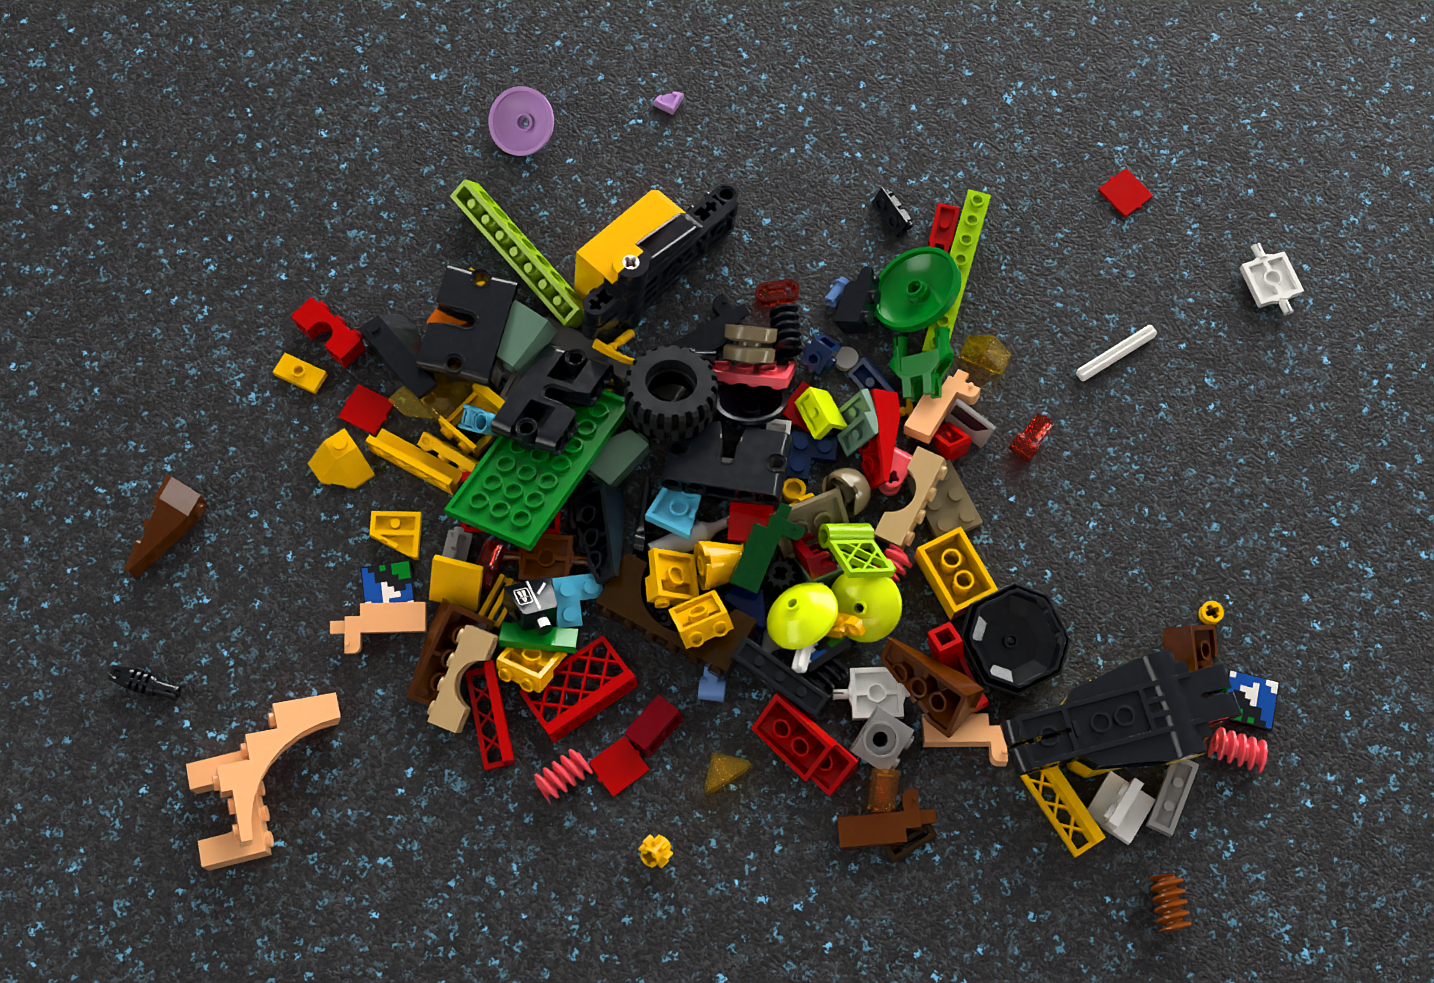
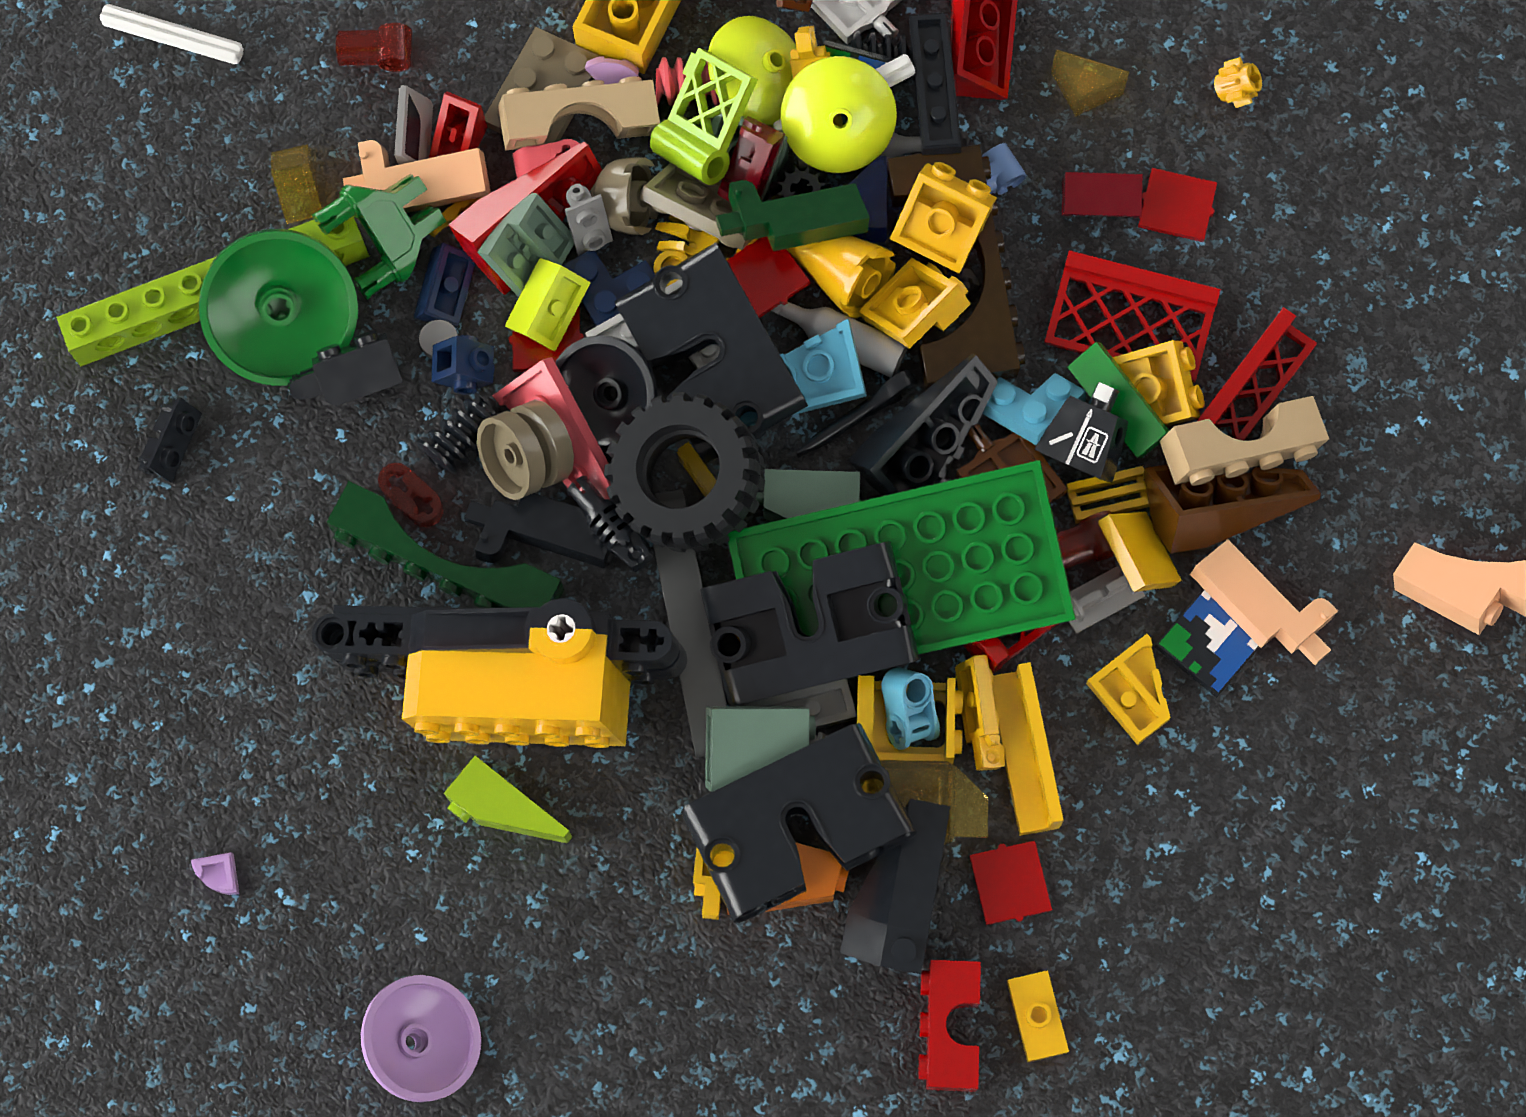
camera: 125 degrees left, 5 degrees up
(174, 514) = (1369, 985): reddish brown wedge -> none
(340, 462) = (1110, 844): yellow slope -> none
(519, 253) = (628, 863): lime brick -> none
(562, 774) = (1247, 246): coral piece -> none
(588, 225) = (497, 804): none -> lime slope
(610, 349) = (681, 615): yellow piece -> none
(773, 264) = (367, 520): none -> dark green arch
(836, 292) = (349, 418): medium blue pin -> none
(849, 456) = (587, 219): none -> light grey hinge
(925, 534) = (610, 70): none -> lavender tile
(944, 226) = (152, 354): red hinge -> none

